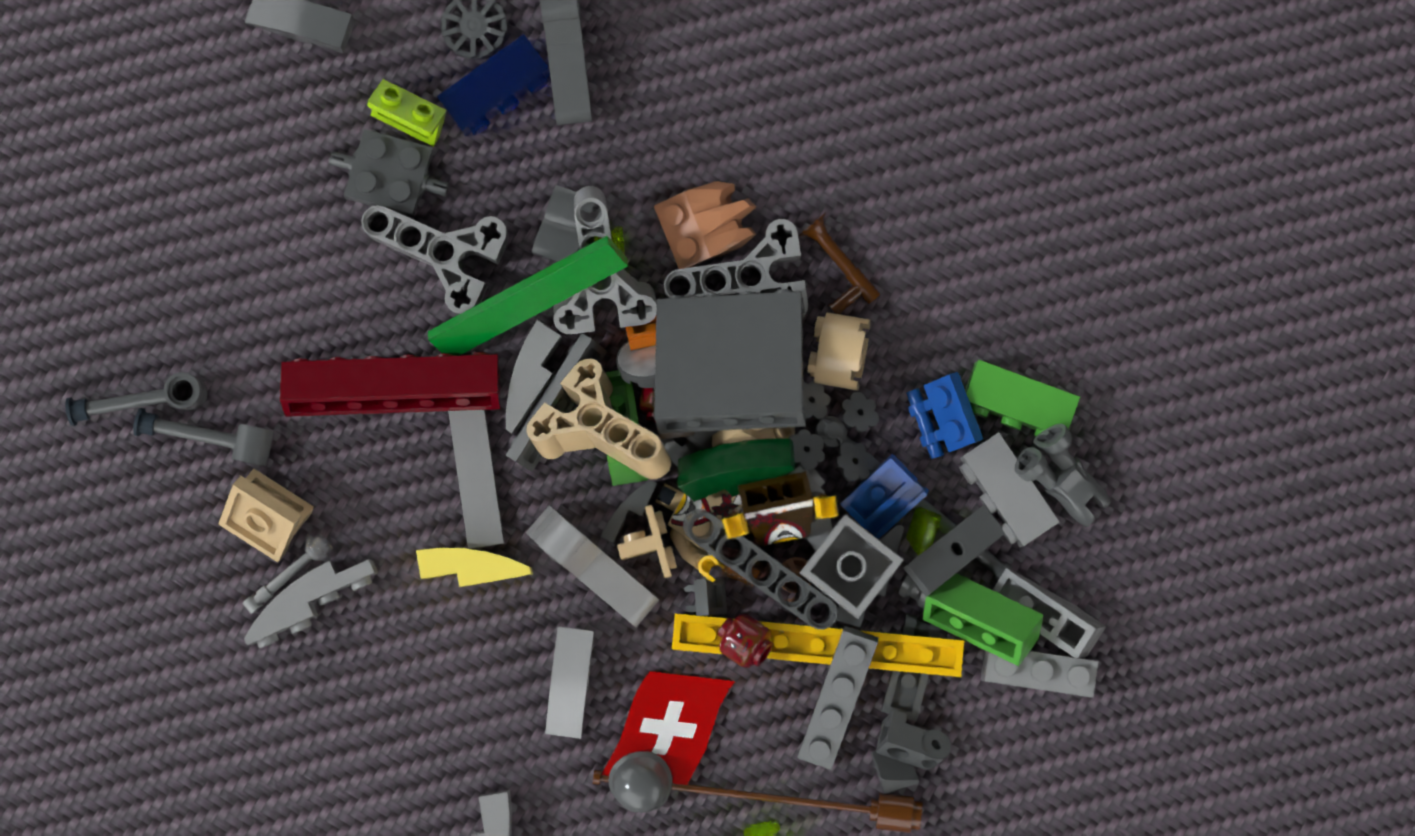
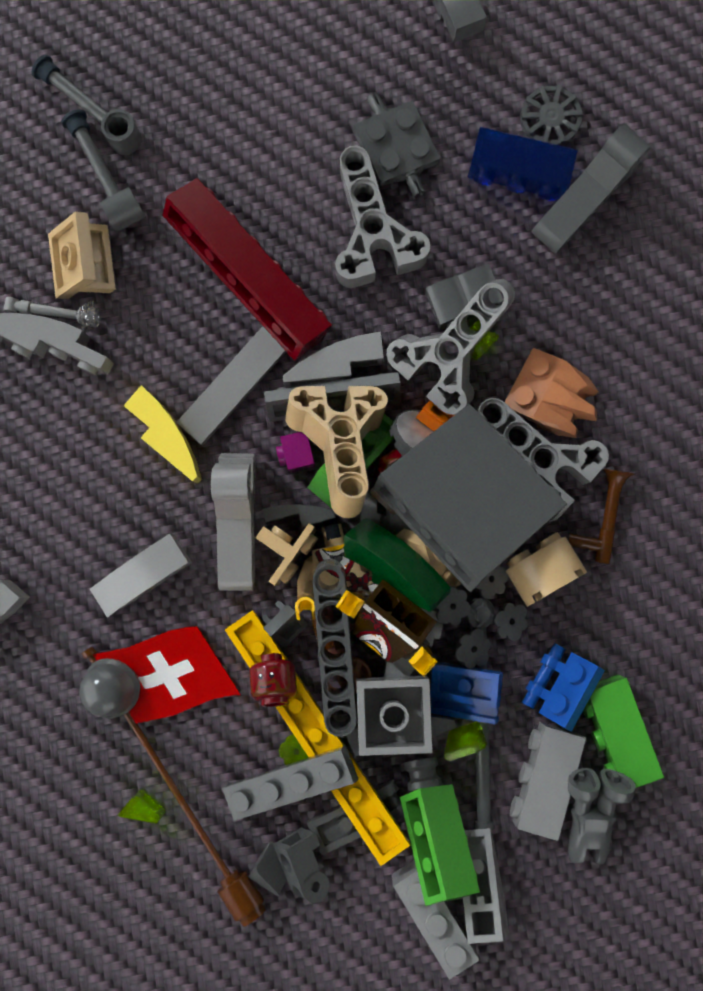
camera: 50 degrees right, 0 degrees up
(407, 112) = (450, 117): lime bracket -> none
(529, 297) = (393, 311): green tile -> none
(576, 471) = (295, 452): none -> magenta plate
(809, 679) = (286, 750): none -> clear neon green plate
(966, 539) = (486, 782): dark grey tile -> none

